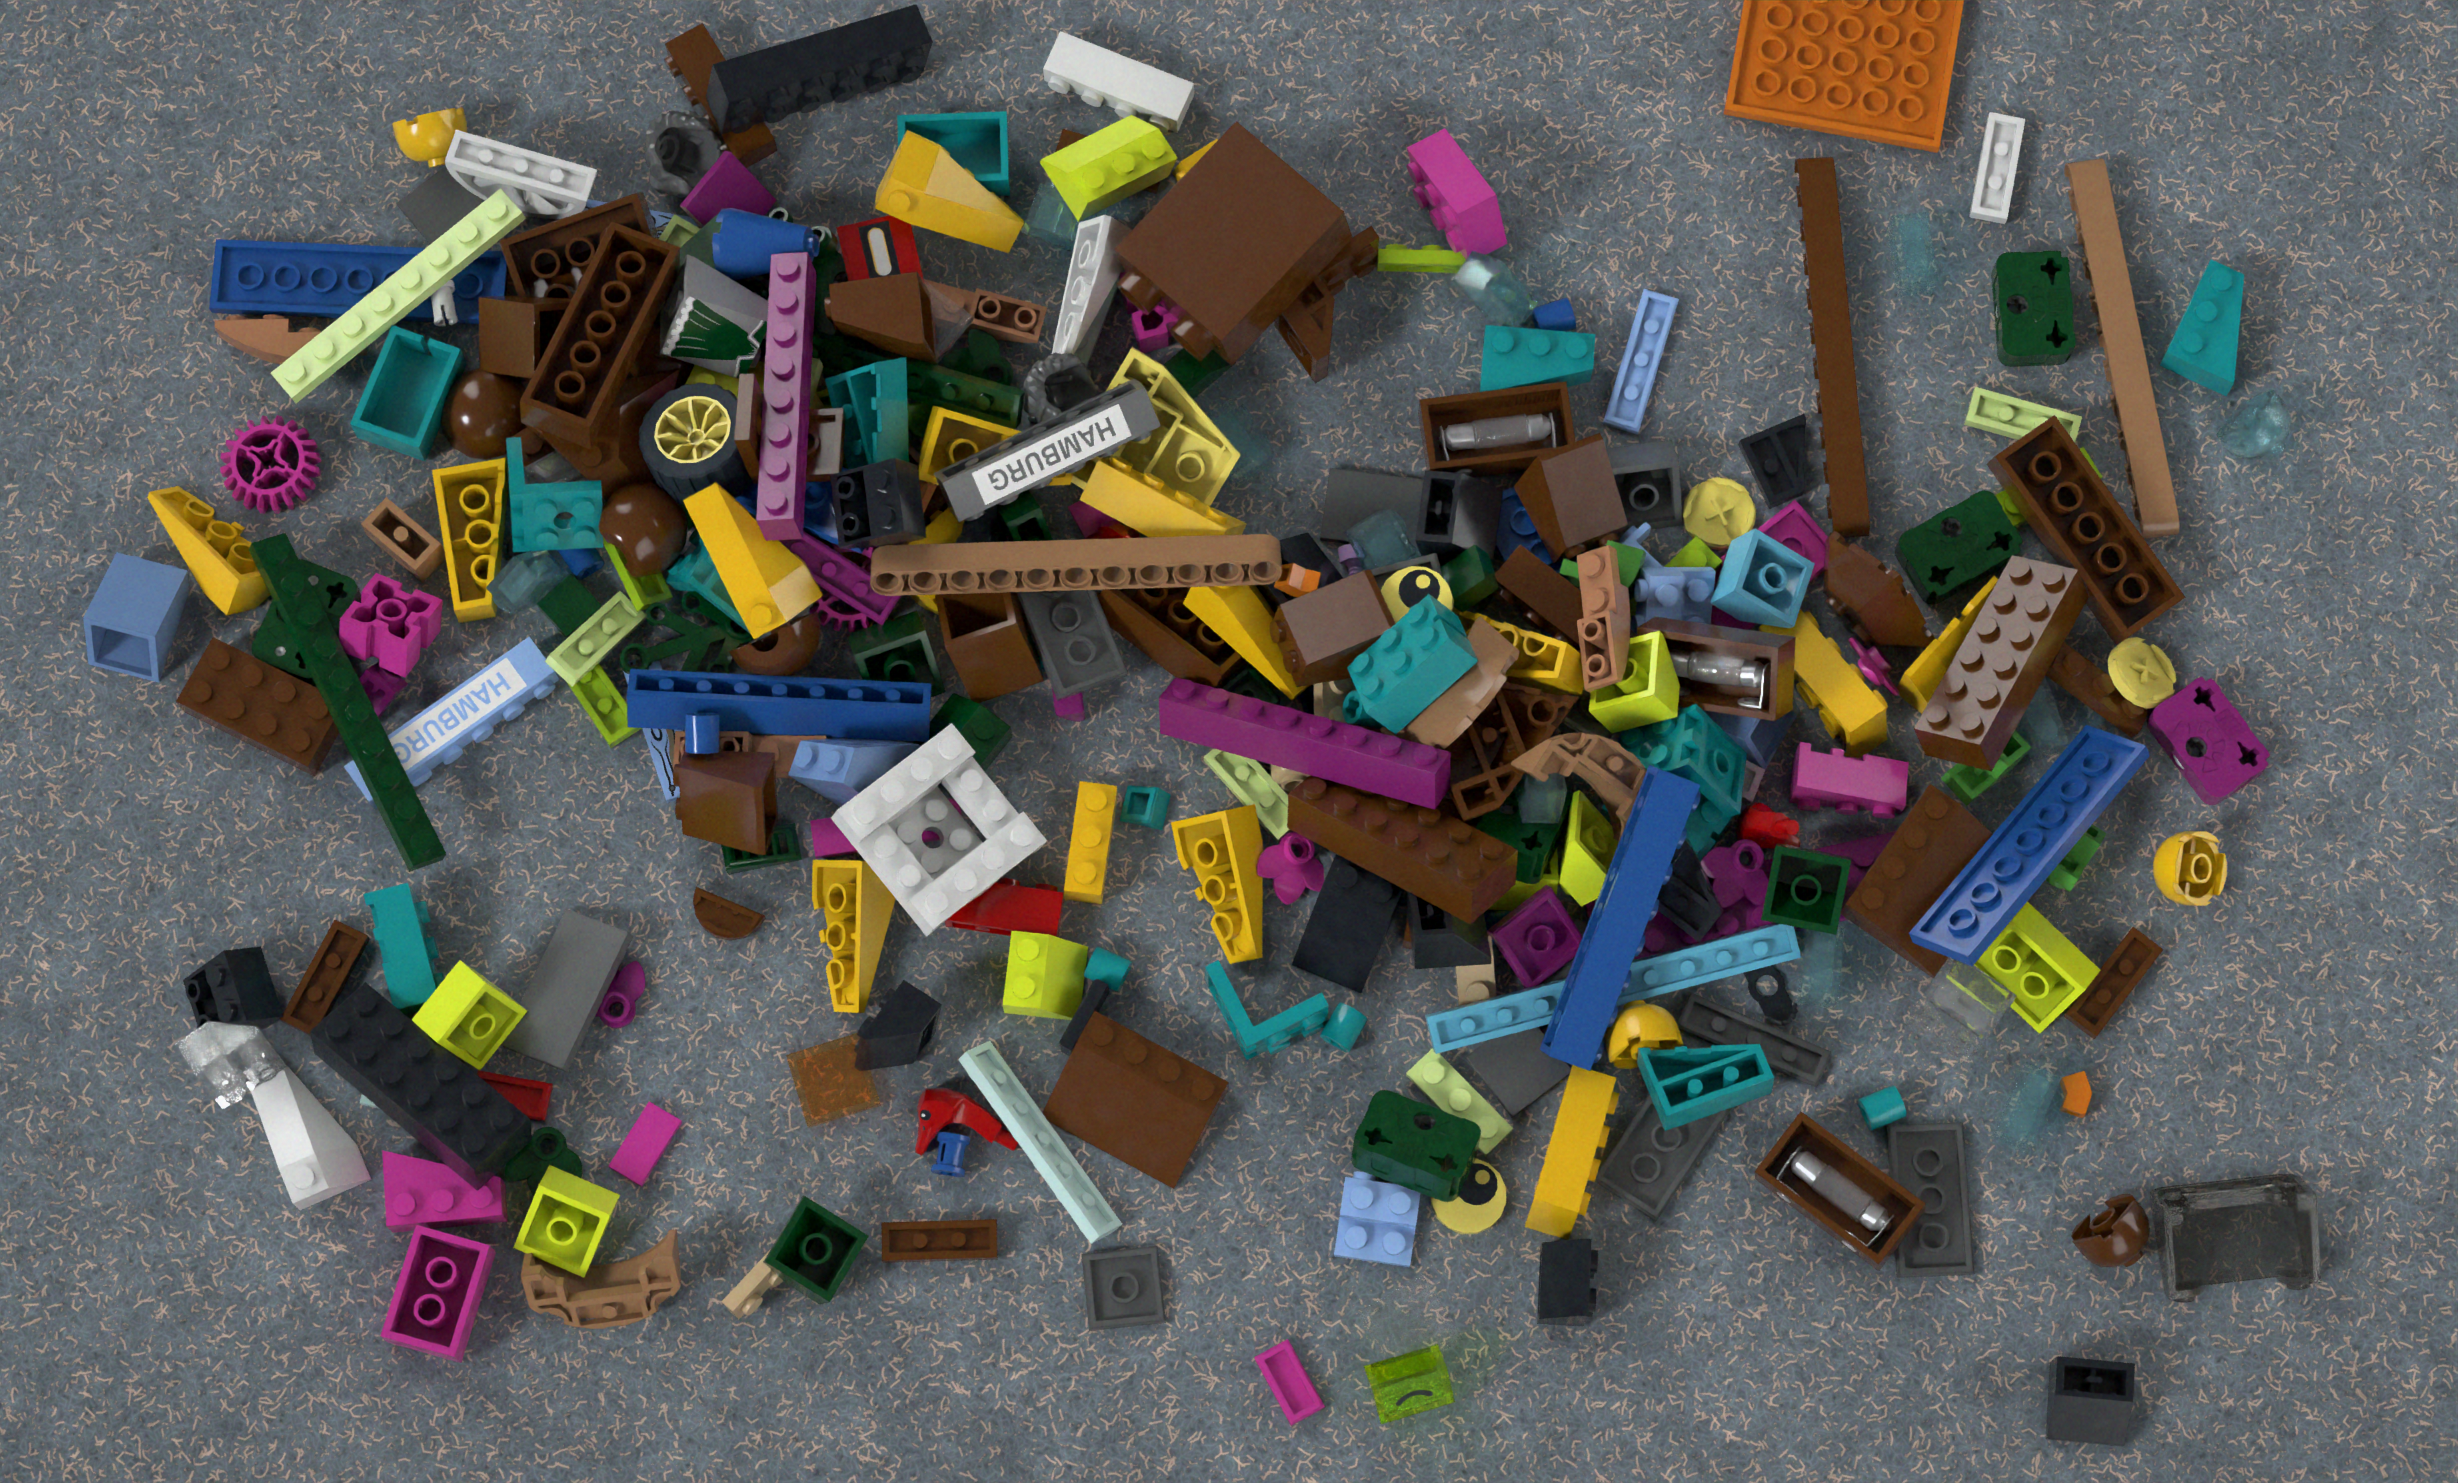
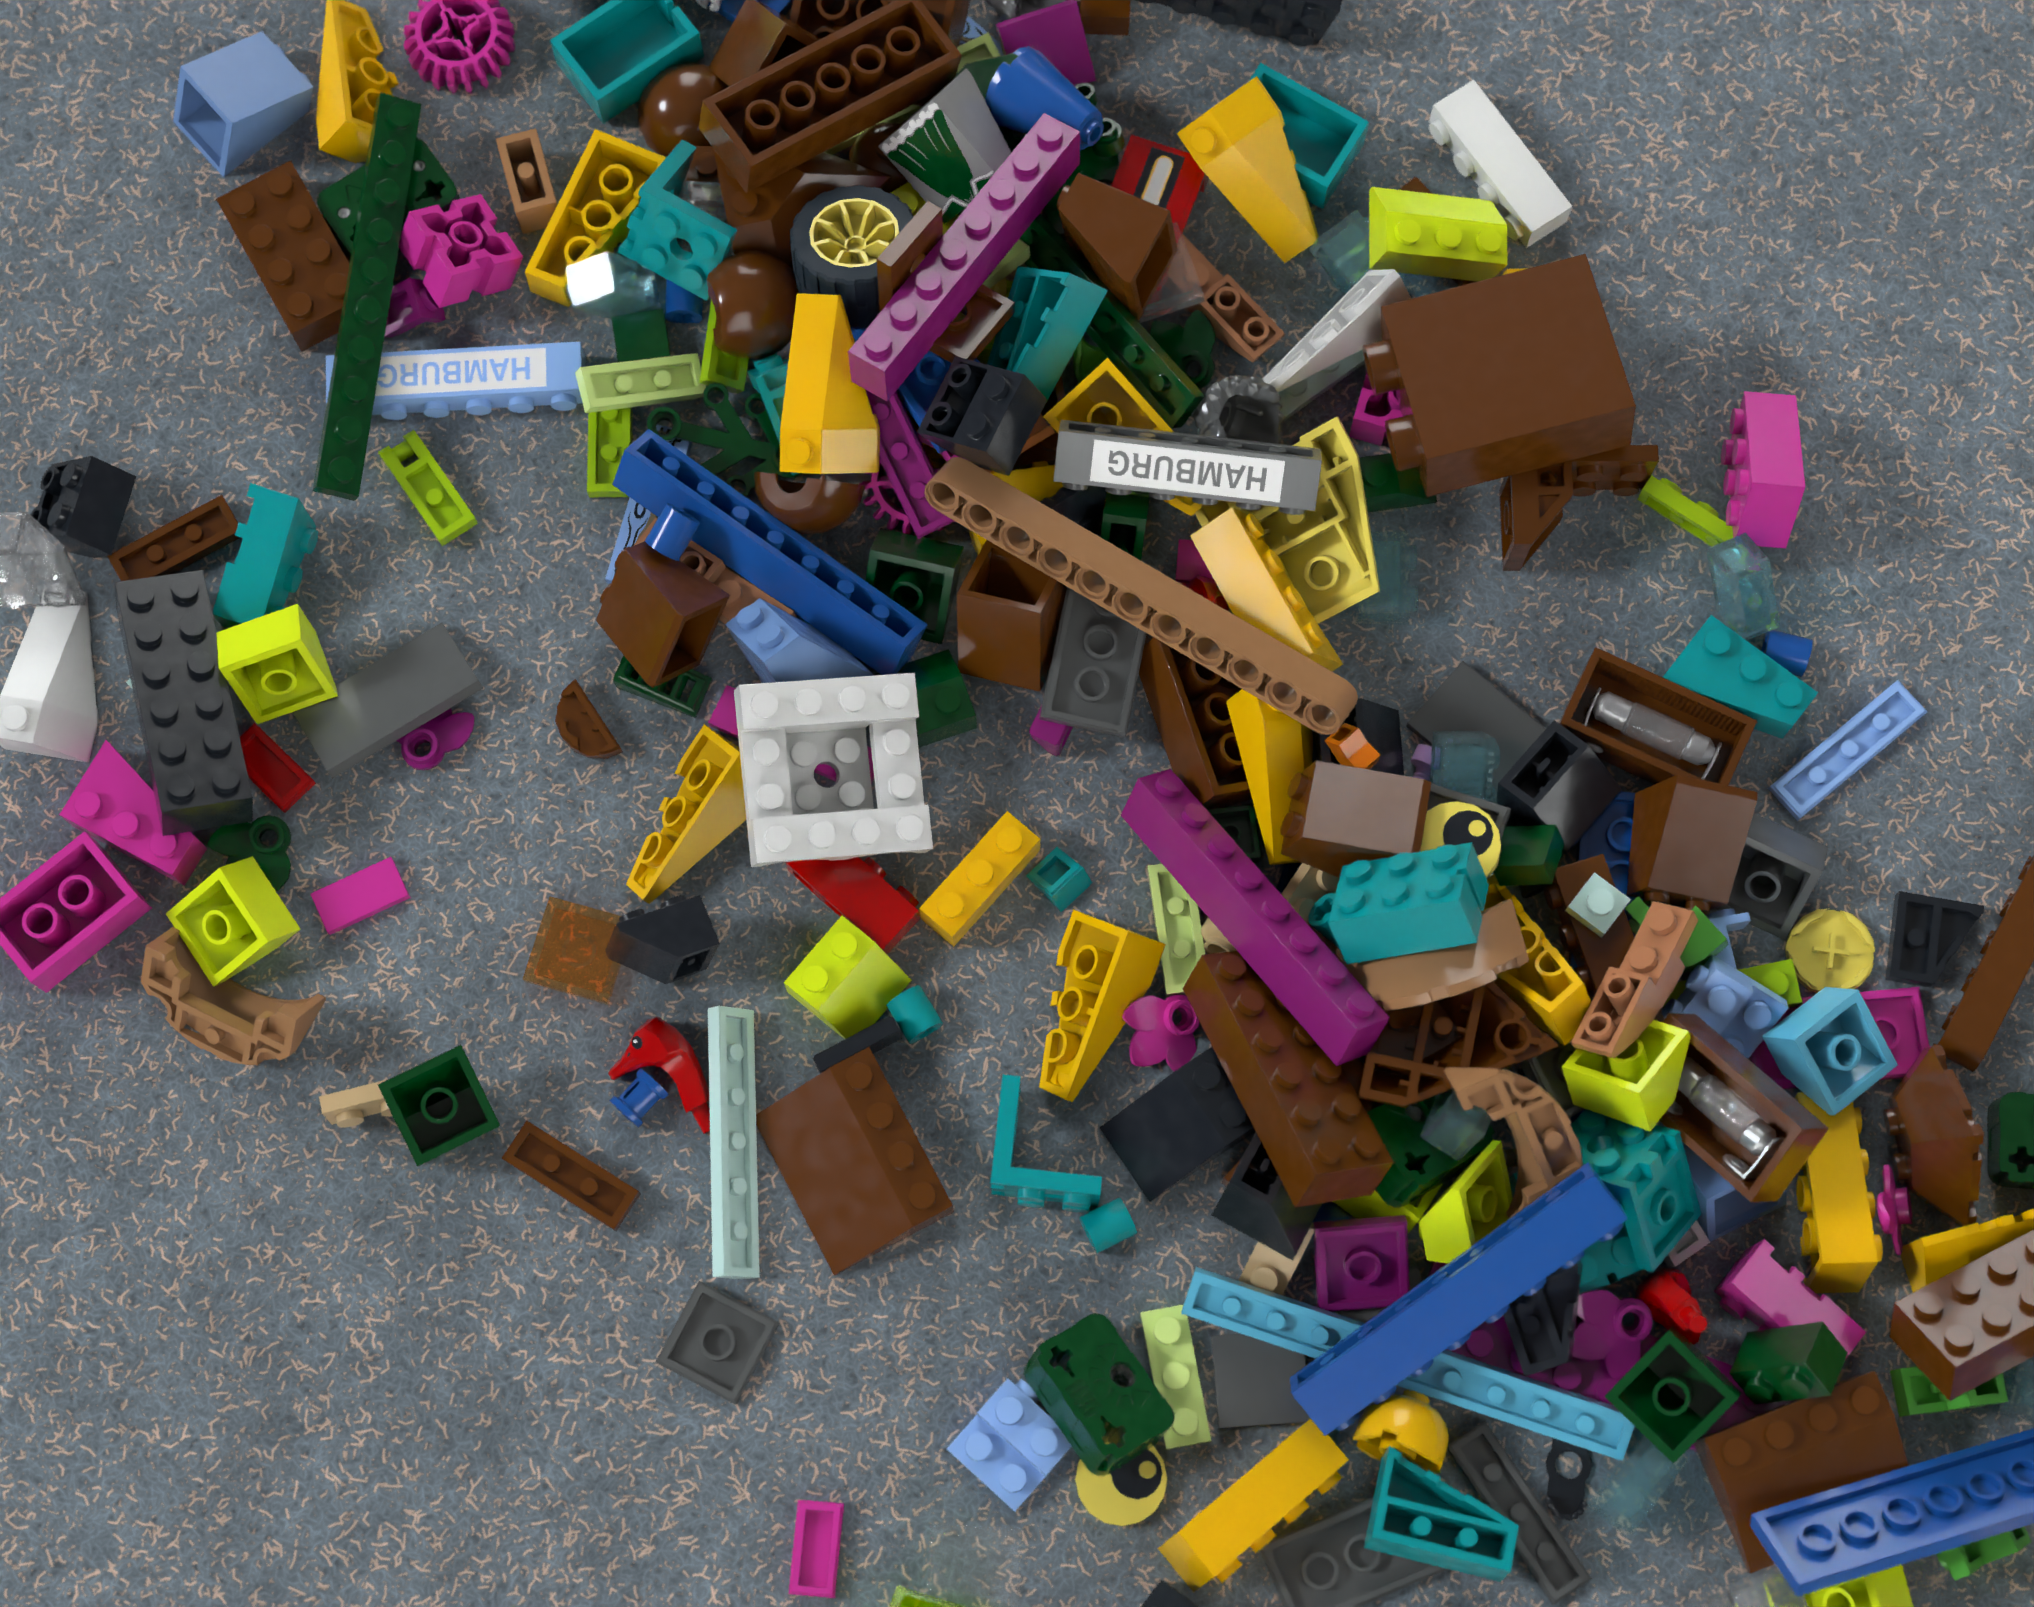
camera: 35 degrees right, 0 degrees up
(486, 817) = (428, 489): none -> lime plate
(1540, 582) = (1597, 905): none -> light aqua plate
(1869, 816) = (1788, 1363): none -> dark green brick

